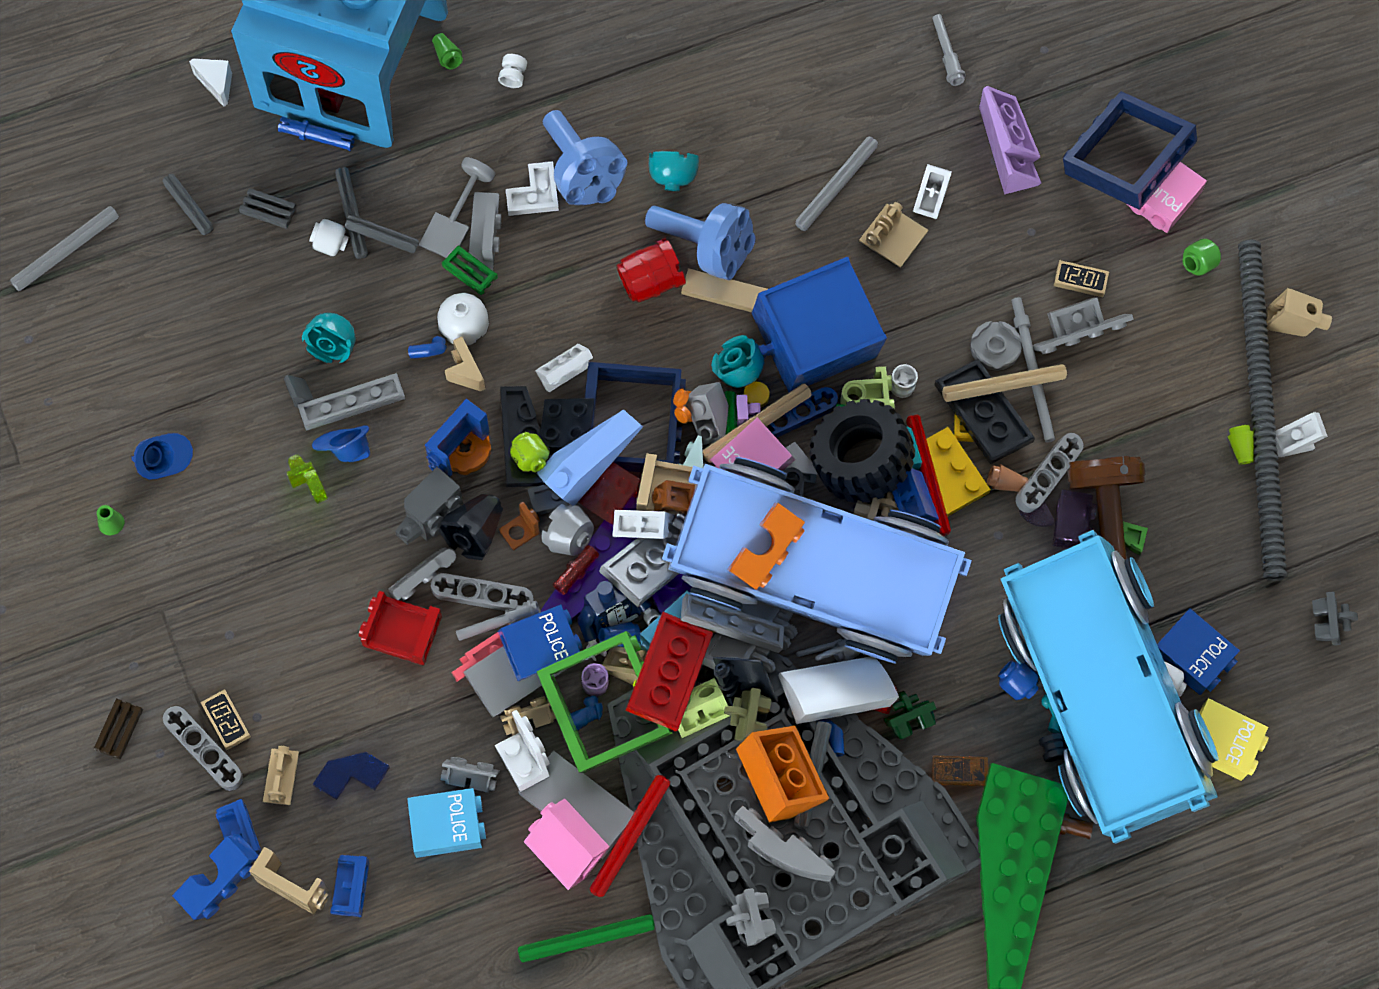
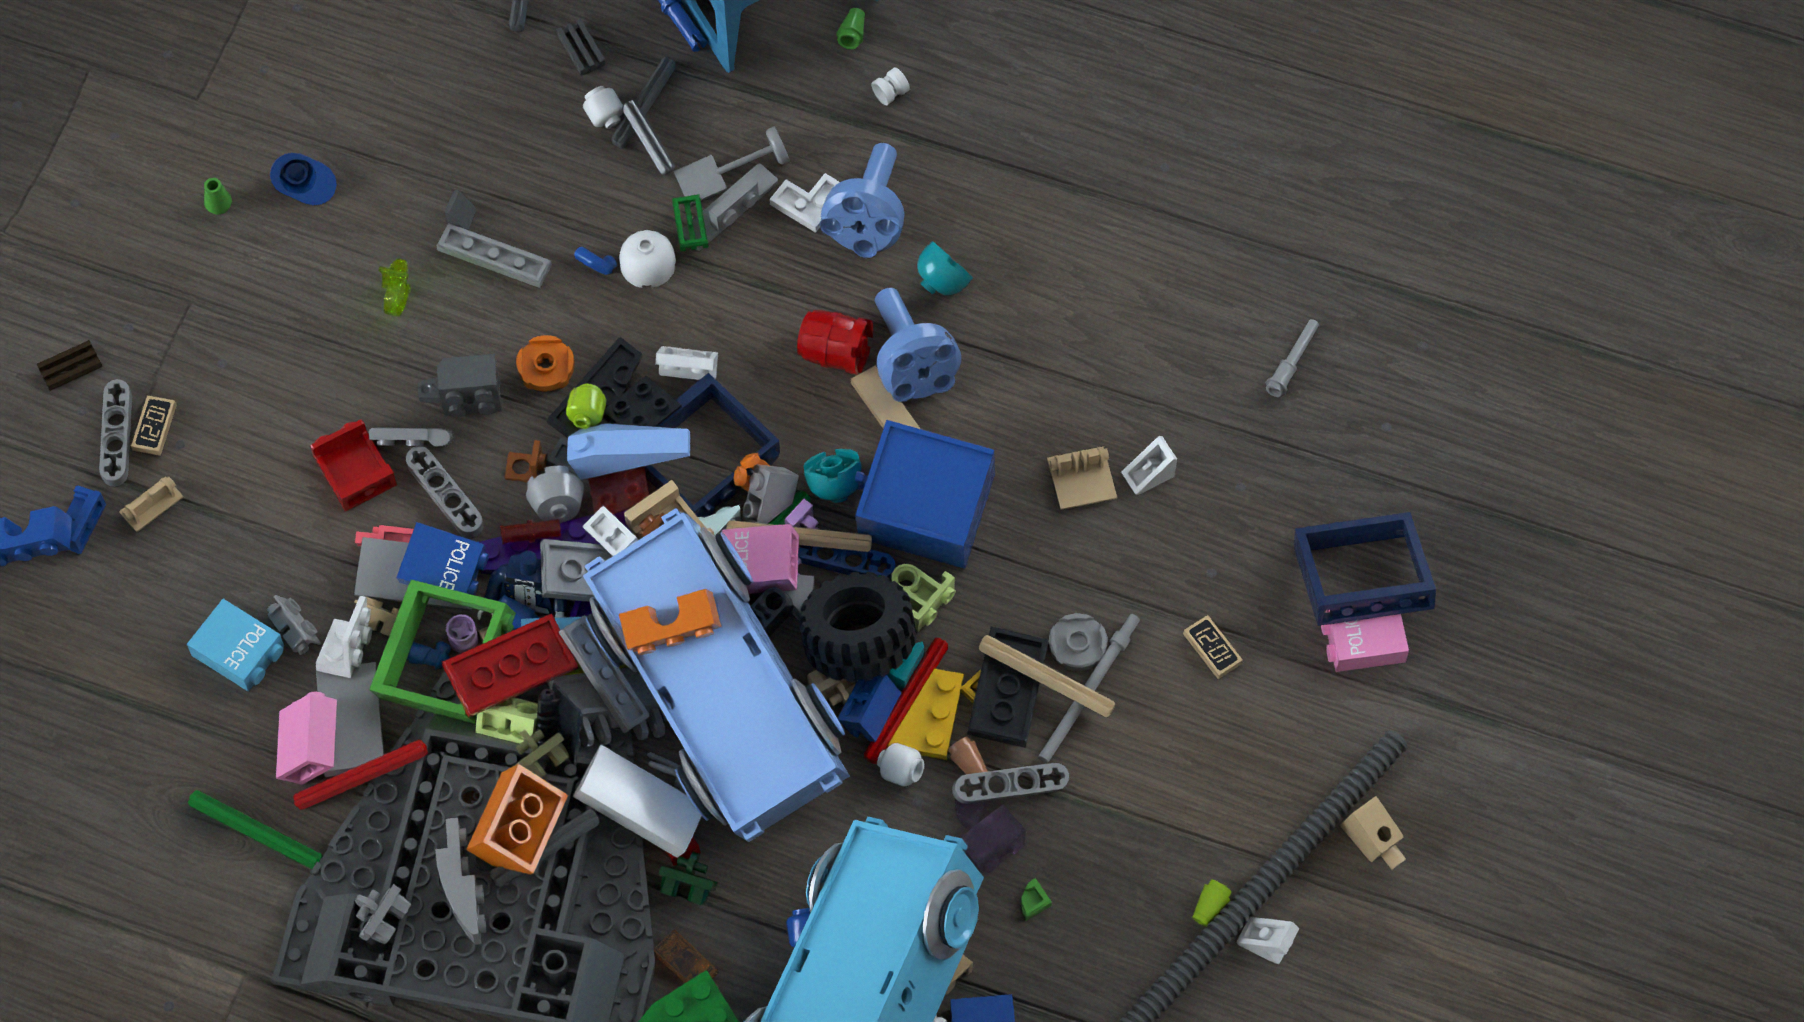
camera: 45 degrees right, 5 degrees down
(265, 871) = (66, 563): tan panel -> none
(329, 337) = (524, 187): teal cylinder -> none
(339, 772) = (198, 538): clear blue tile -> none
(345, 444) = (452, 283): blue piece -> none
(350, 885) = (120, 633): blue hinge -> none
(449, 436) = (533, 340): blue panel -> none
(466, 371) = (608, 302): tan slope -> none
(472, 526) = (488, 429): black cone -> none
(510, 617) = (444, 524): light grey pin -> none
(757, 393) = (828, 515): yellow tile -> none
(836, 738) = (604, 839): blue arm -> none
(837, 182) = (1076, 395): light grey axle -> none
(906, 376) = (963, 597): white wheel -> none
(969, 520) = (900, 764): none -> white head
(1009, 140) = (1268, 477): lavender slope -> none
(1079, 321) = (1168, 678): light grey bracket -> none
(1107, 477) = (1048, 823): reddish brown piece -> none
(1201, 257) = (1340, 714): bright green head -> none

